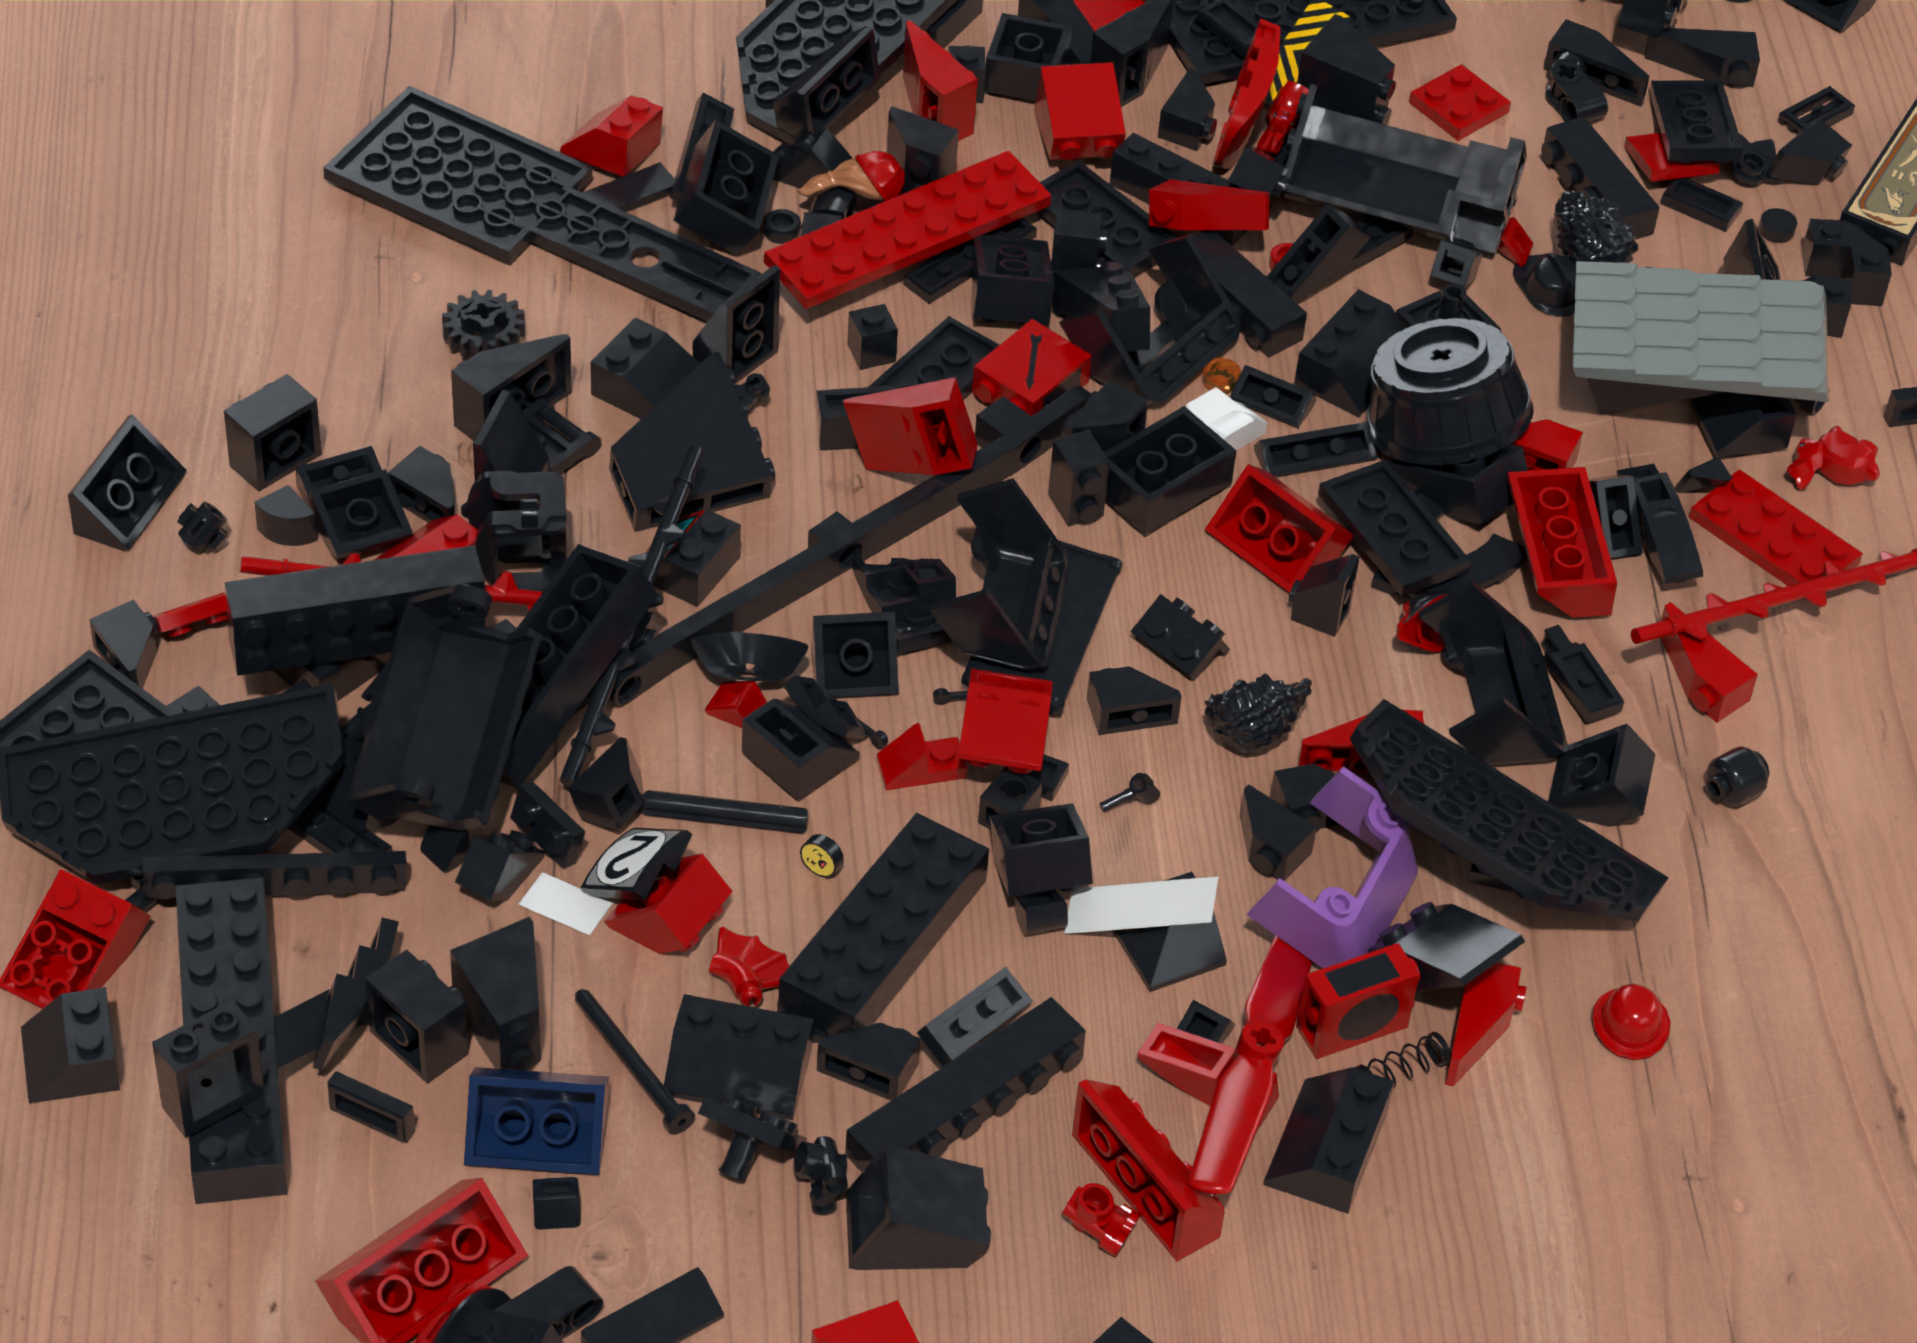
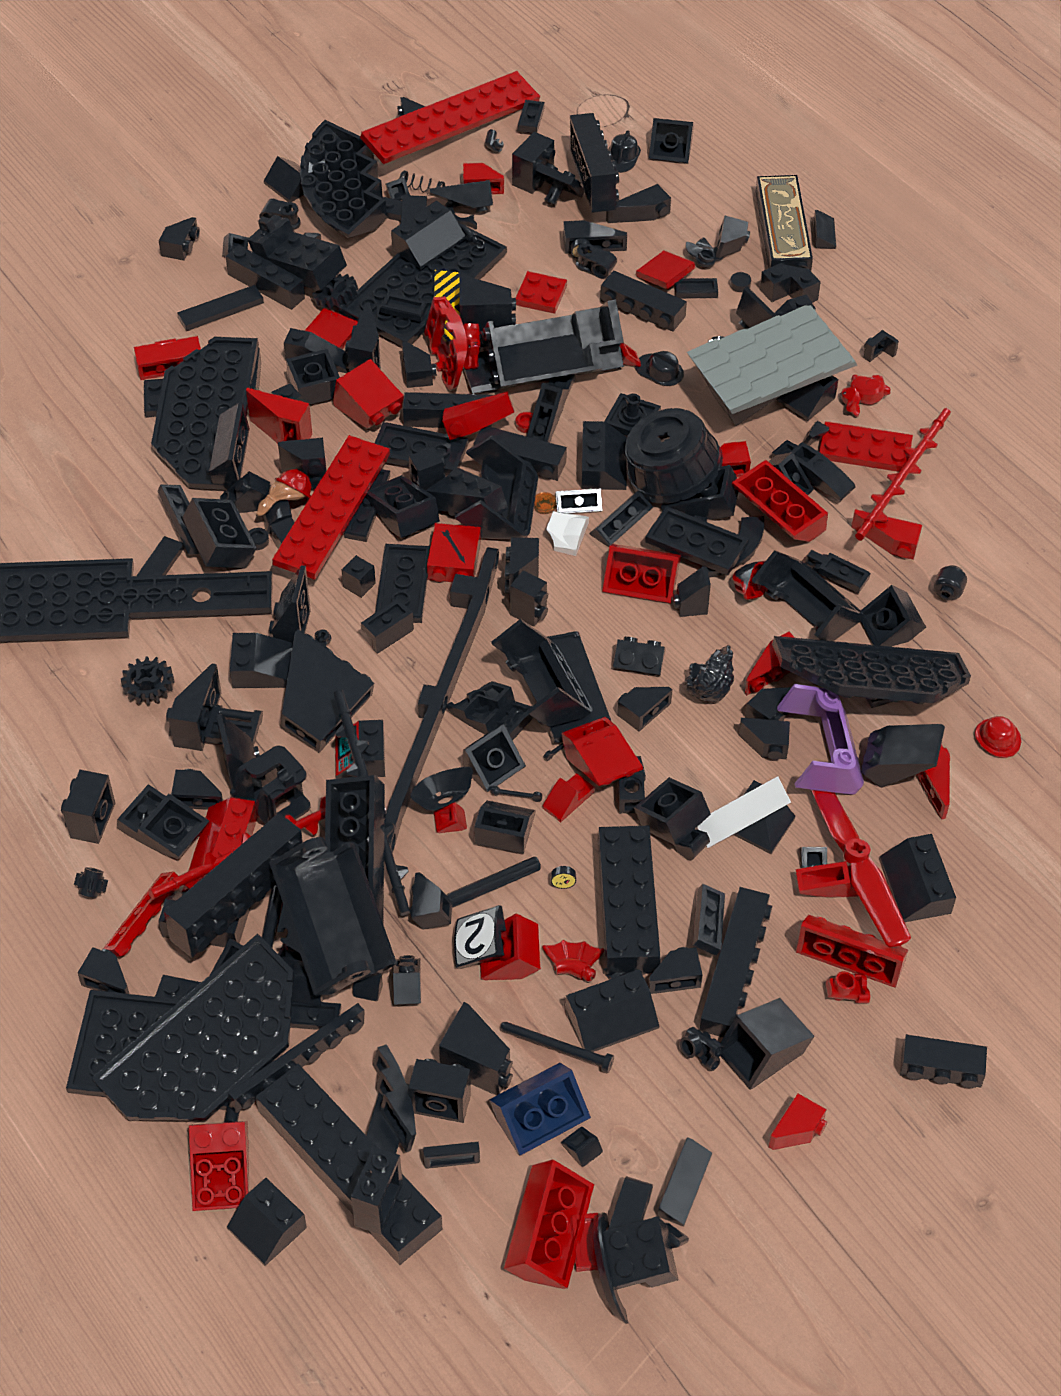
camera: 30 degrees left, 5 degrees up
(123, 487) = (29, 884): black slope -> none
(286, 518) = (132, 851): black brick -> none
(547, 824) = (414, 942): black plate -> none
(565, 903) = (452, 980): white sticker -> none
(618, 136) = (130, 533): red slope -> none
(749, 1132) = (654, 1048): black plate -> none
(828, 713) = (510, 798): black slope -> none
(914, 429) = (431, 618): red slope -> none
(1140, 787) = (682, 754): black hand -> none
(1167, 469) = (566, 568): black brick -> none
(1260, 173) = (488, 382): black slope -> none
(1357, 1000) = (880, 801): red brick -> none
(1445, 1052) = (925, 808): black piece -> none
(1457, 262) = (613, 380): black brick -> none
(1593, 229) = (667, 331): black piece -> none
(1696, 121) = (666, 245): black plate -> none
(1830, 113) = (707, 222): black tile -> none

